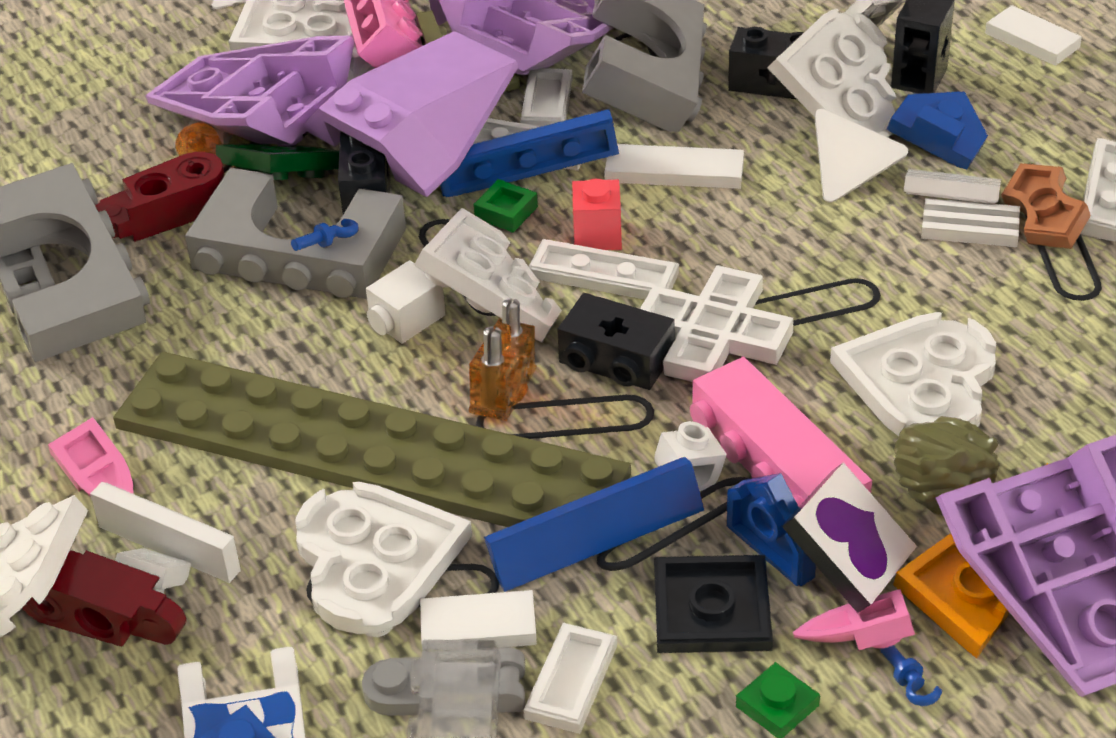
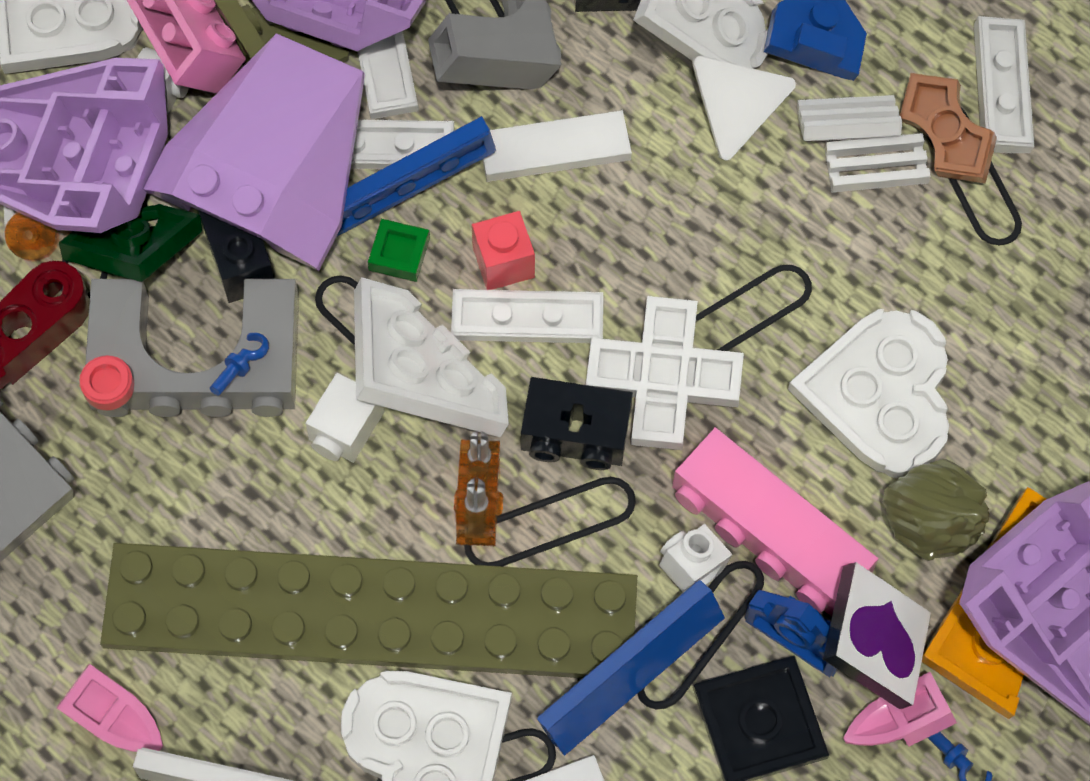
camera: 20 degrees left, 25 degrees up
(206, 229) = (106, 382): none -> coral tile

